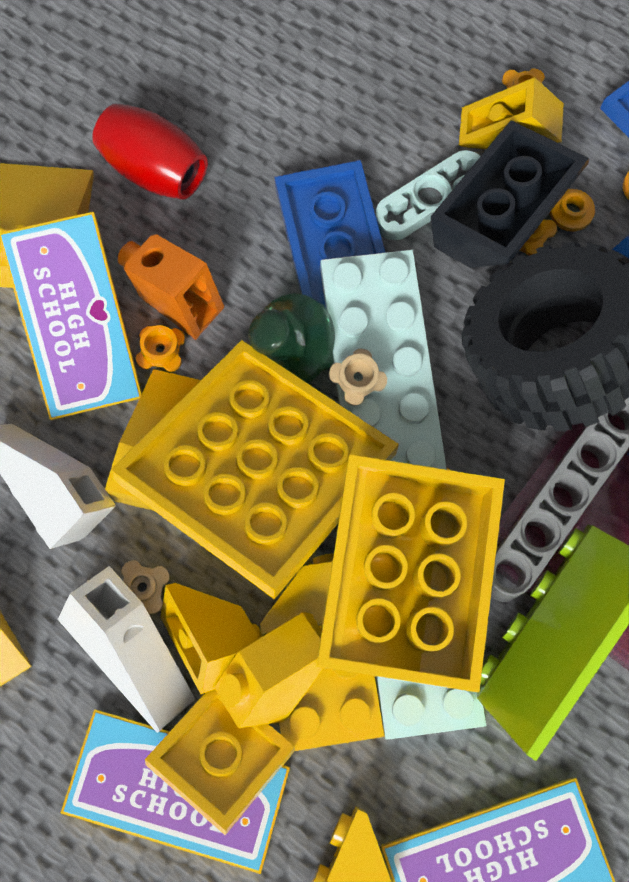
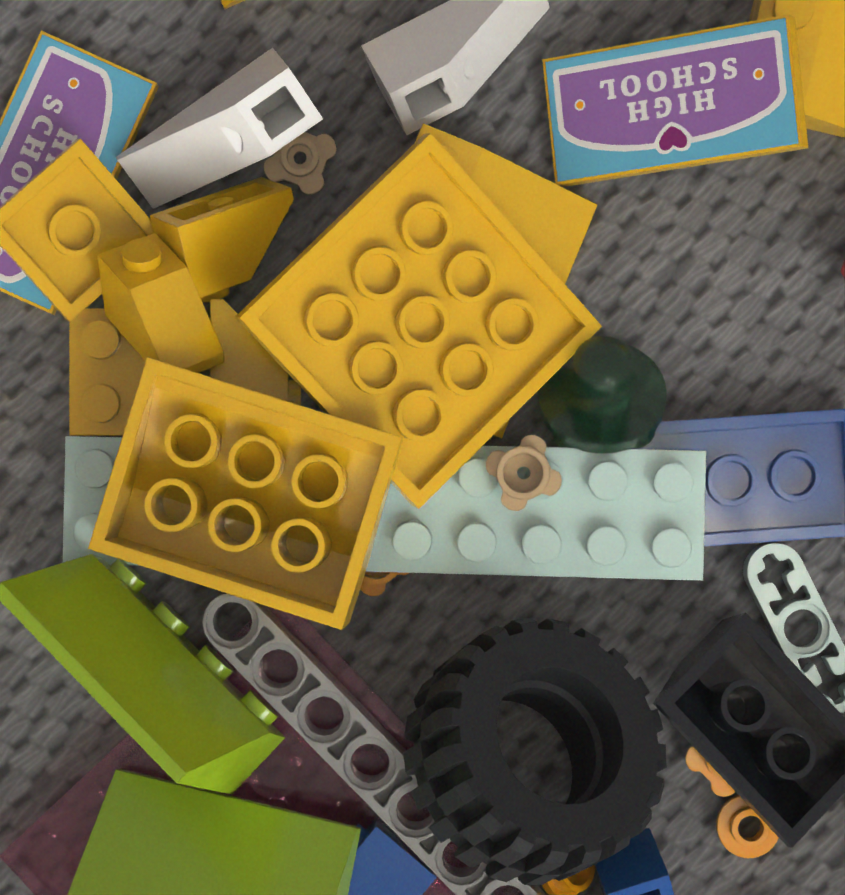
camera: 100 degrees right, 15 degrees up
(156, 336) = (640, 208): light orange plate -> none
(172, 283) = (710, 240): orange torso -> none

